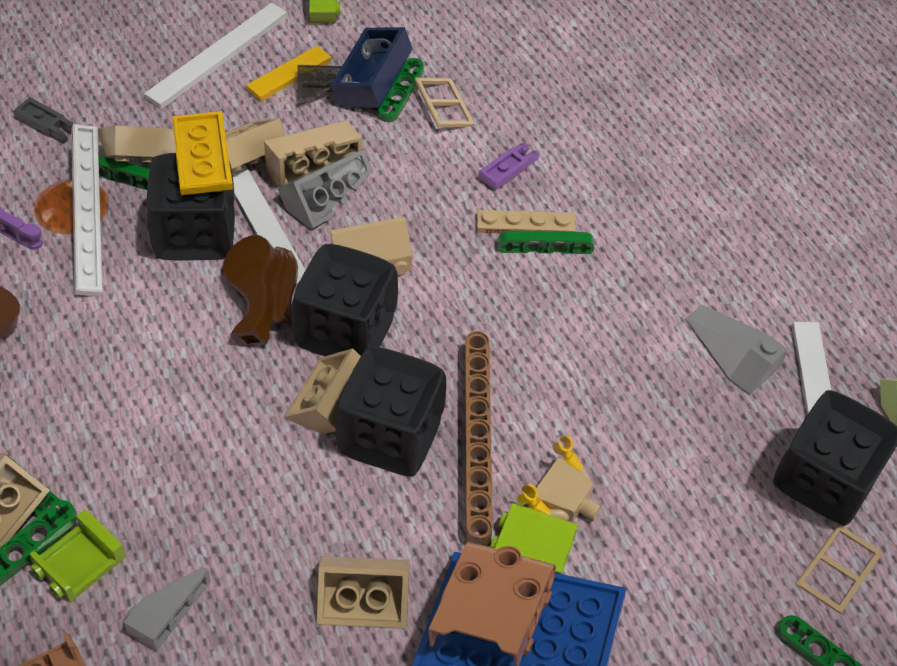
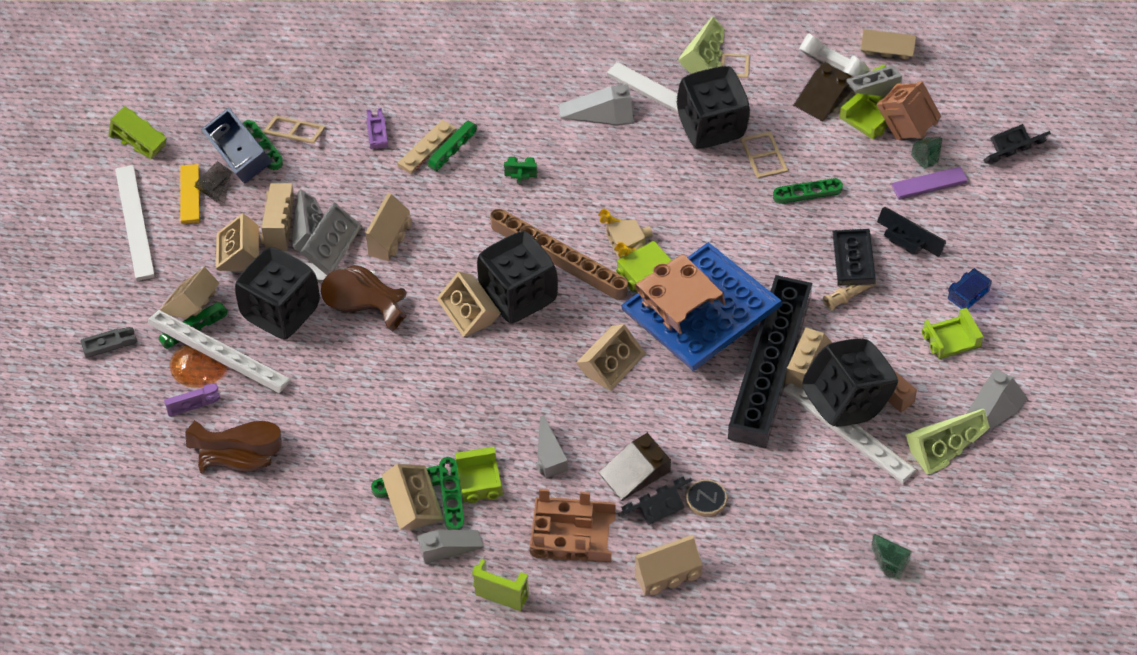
camera: 50 degrees left, 0 degrees up
(202, 153) = (259, 255): yellow tile -> none
(311, 211) = (331, 239): none -> light grey tile
(344, 301) = (422, 256): black piece -> none
(567, 326) = (520, 170): none -> green hips

